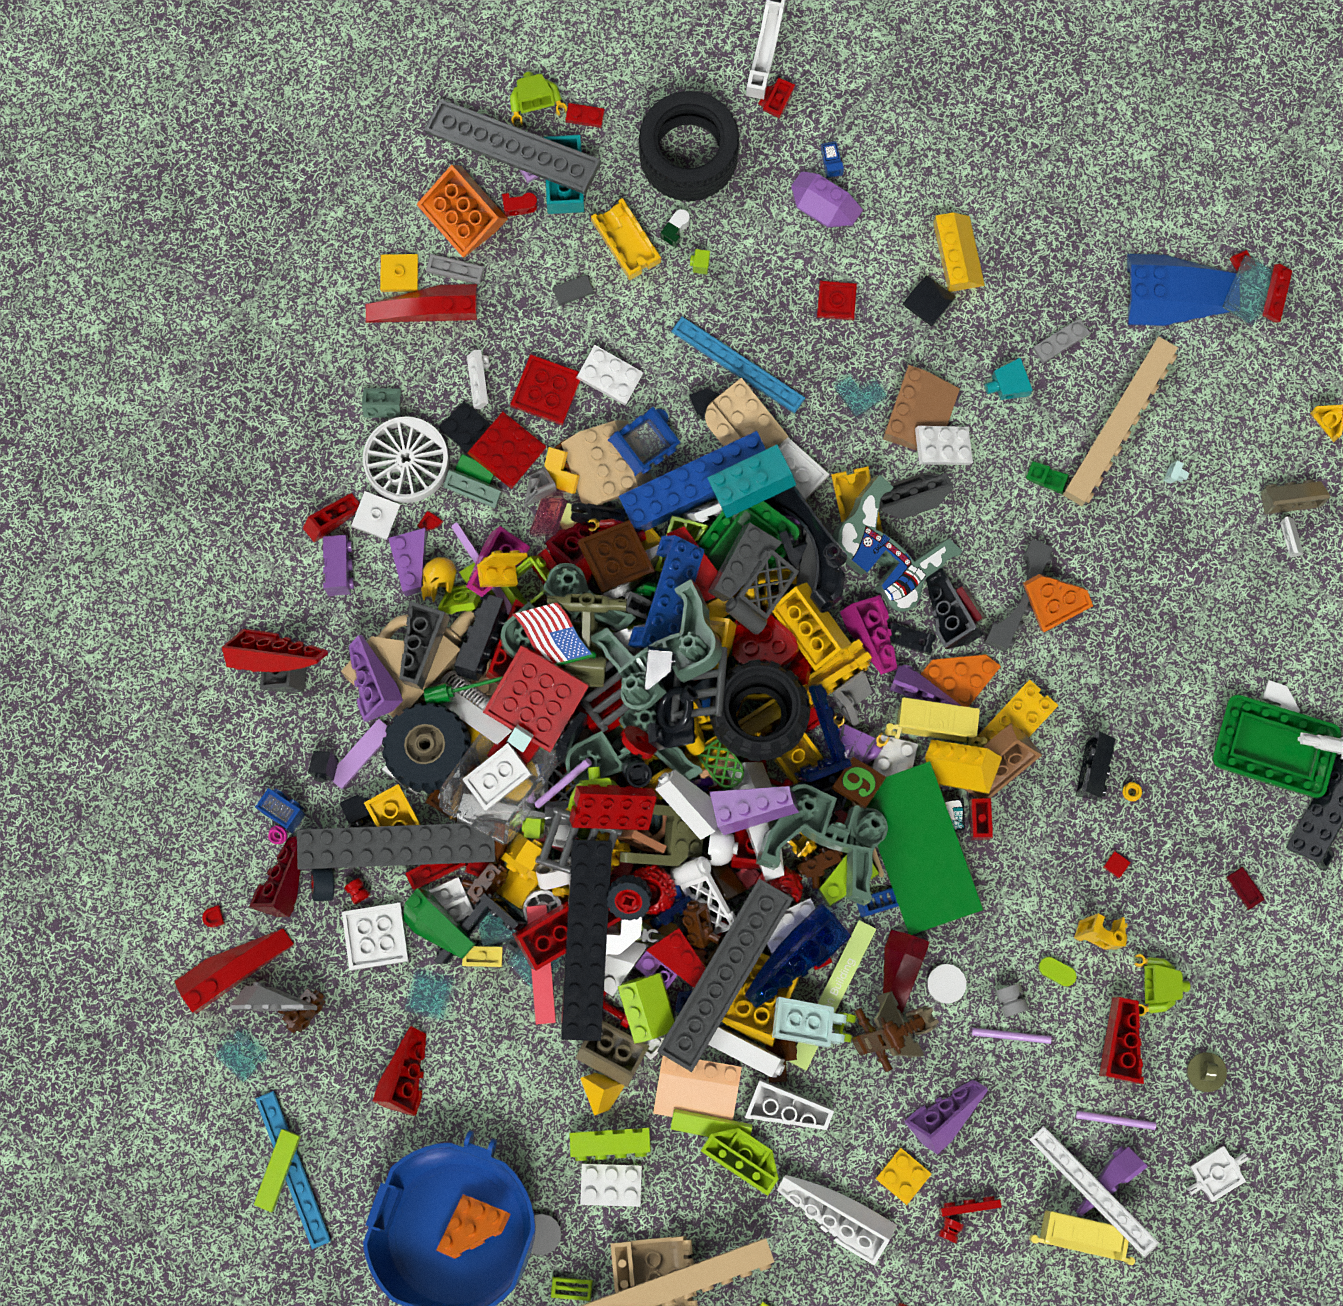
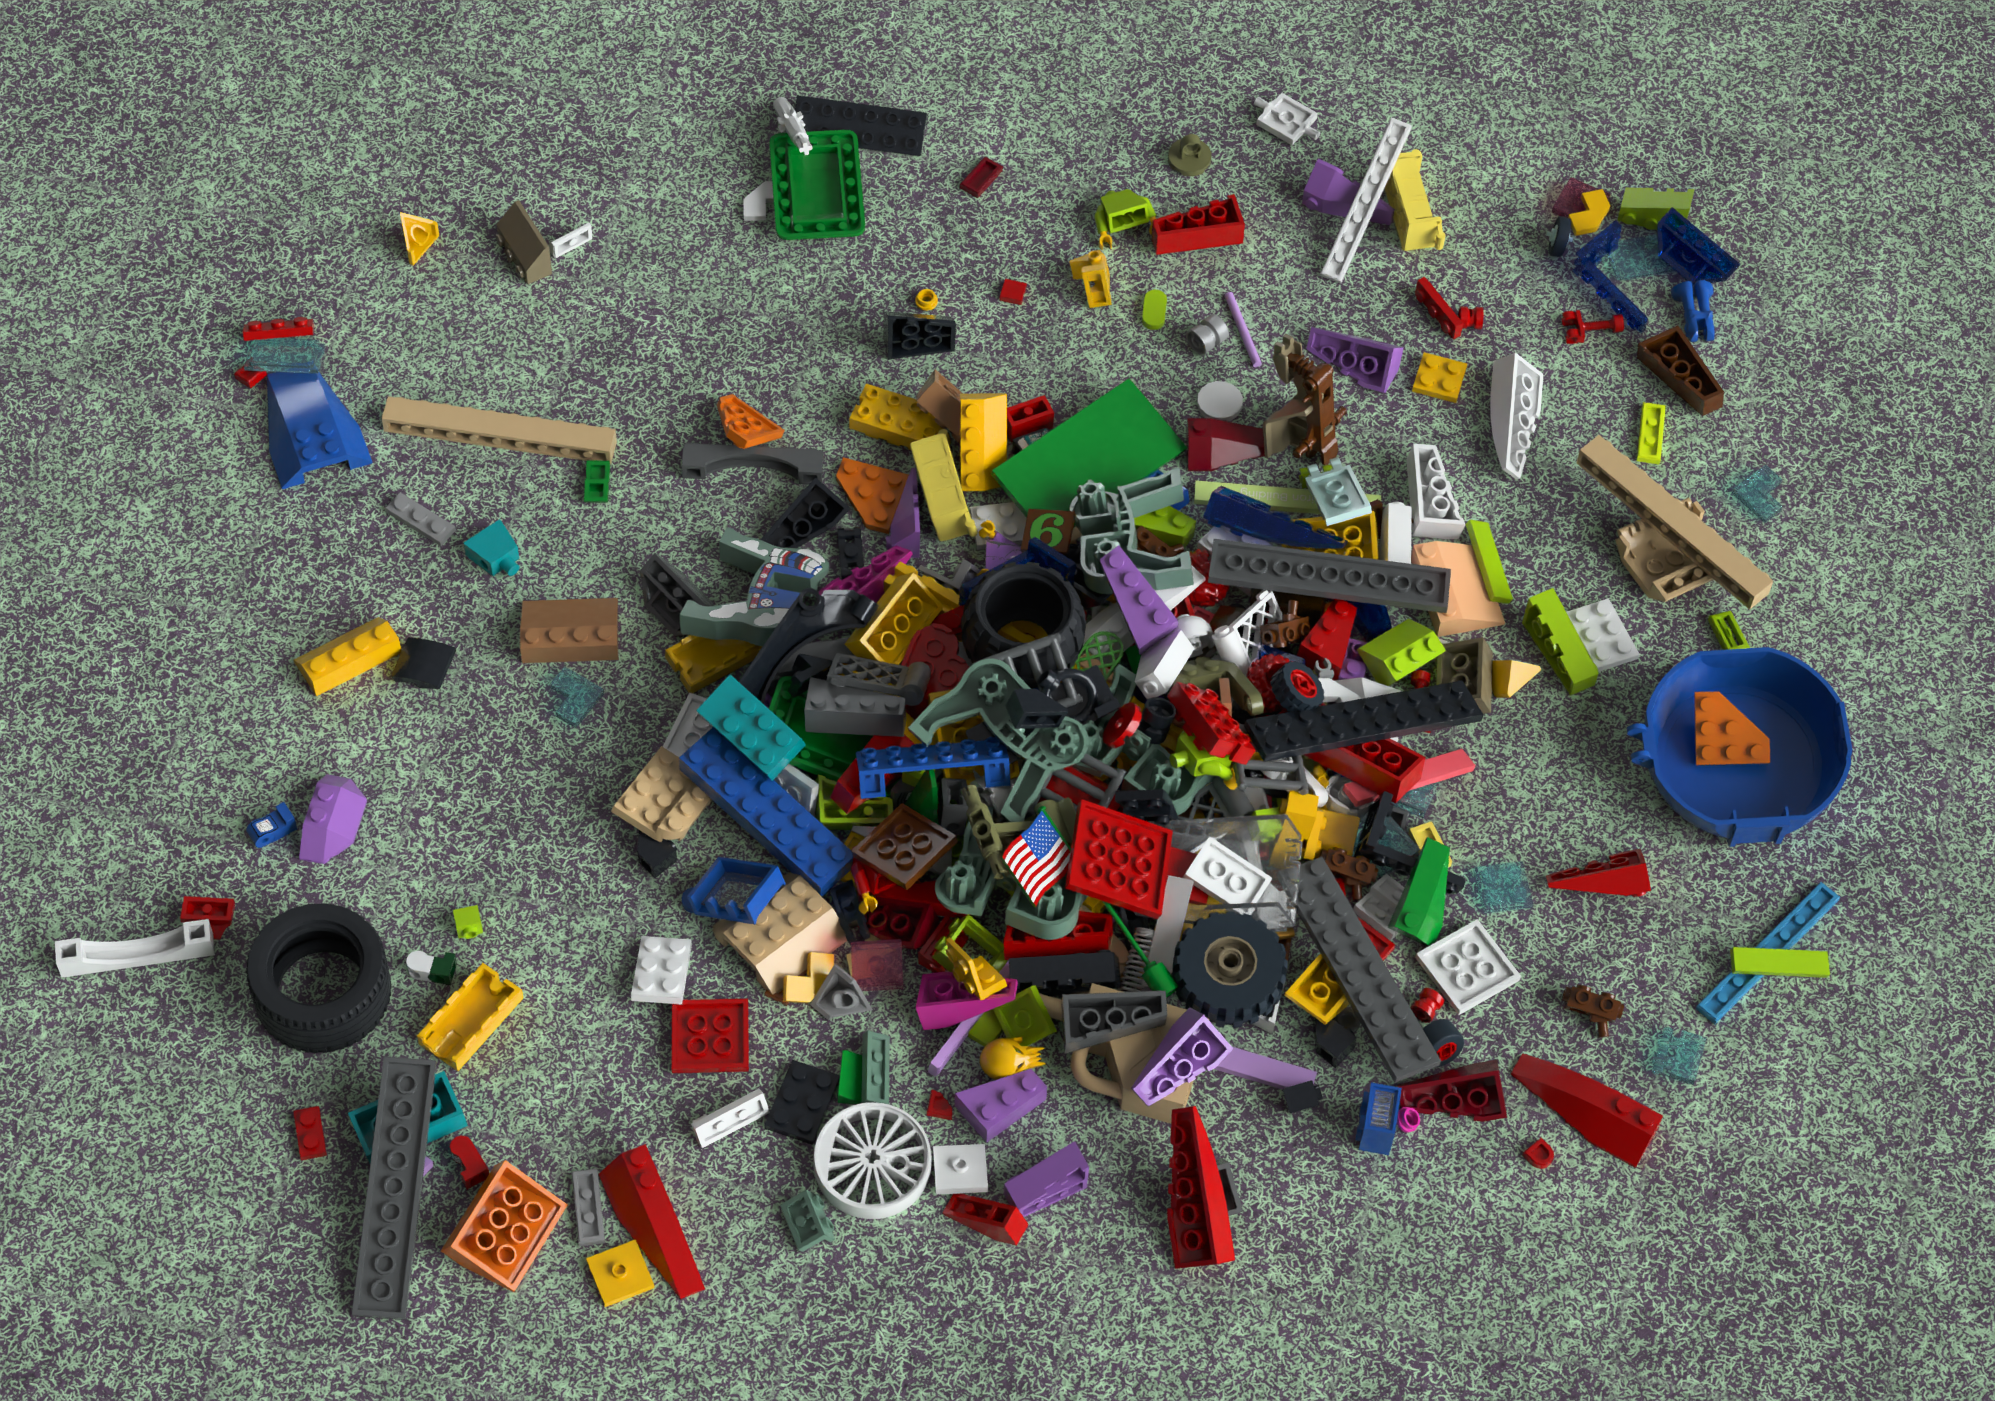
camera: 115 degrees left, 20 degrees down
(268, 999) = (1603, 1043): light grey wedge -> none
(507, 450) = (810, 1045): red plate -> none
(520, 738) = (1172, 862): light aqua tile -> none
(532, 94) = (306, 1199): lime torso -> none
(563, 782) = (1212, 807): lavender bar -> none
(573, 290) = (562, 1057): dark grey tile -> none
(738, 365) = (587, 840): dark azure tile -> none
(743, 1157) = (1506, 511): lime wedge -> none
(836, 300) = (459, 762): red tile -> none
(943, 445) = (604, 588): white plate -> none
(971, 603) = (783, 505): dark red tile -> none
(1115, 1120) = (1281, 221): lavender bar -> none
(1176, 473) = (540, 362): light aqua tile -> none

